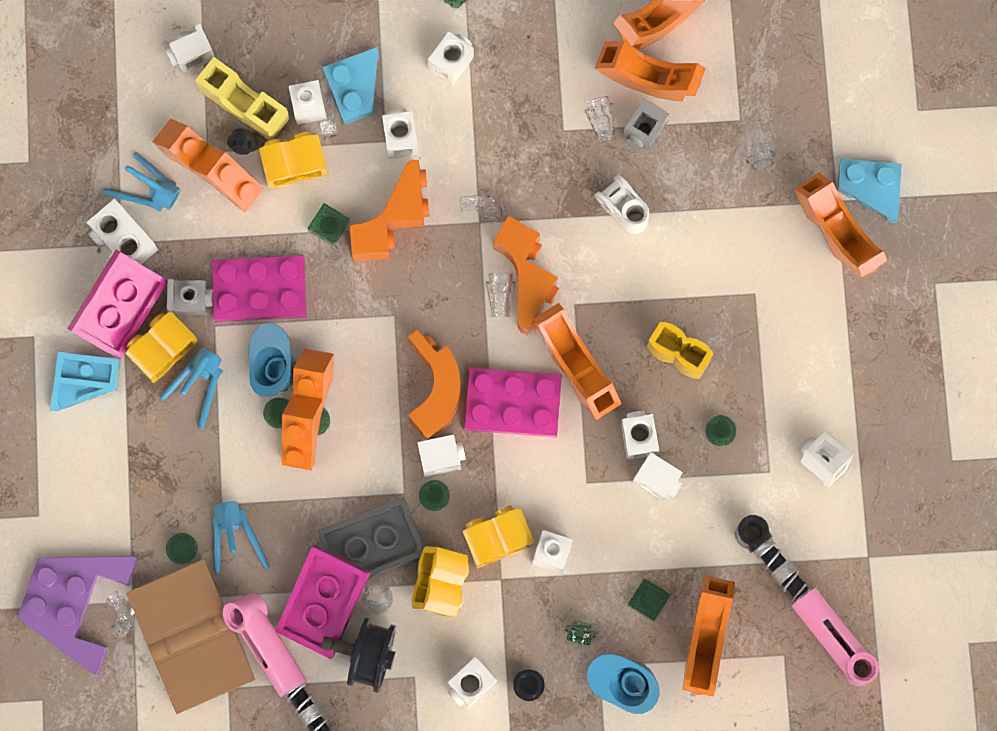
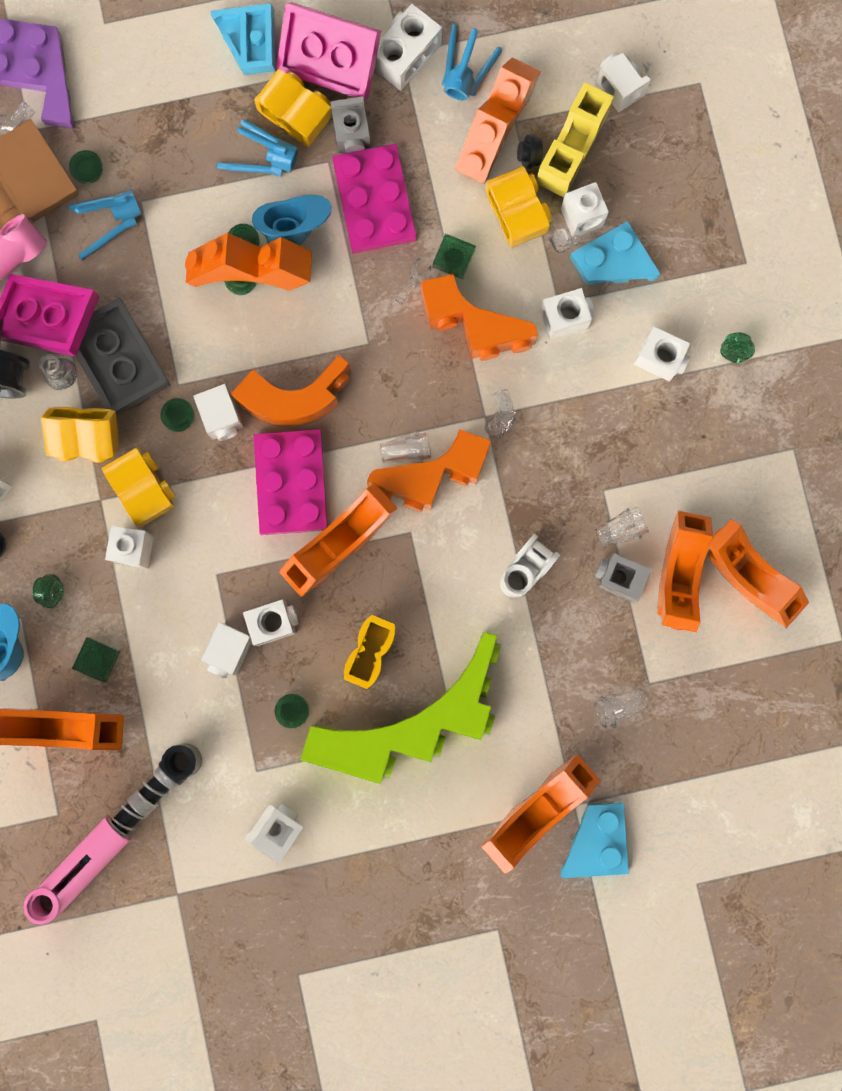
camera: 80 degrees right, 5 degrees up
(739, 284) = (368, 751): none -> lime arch

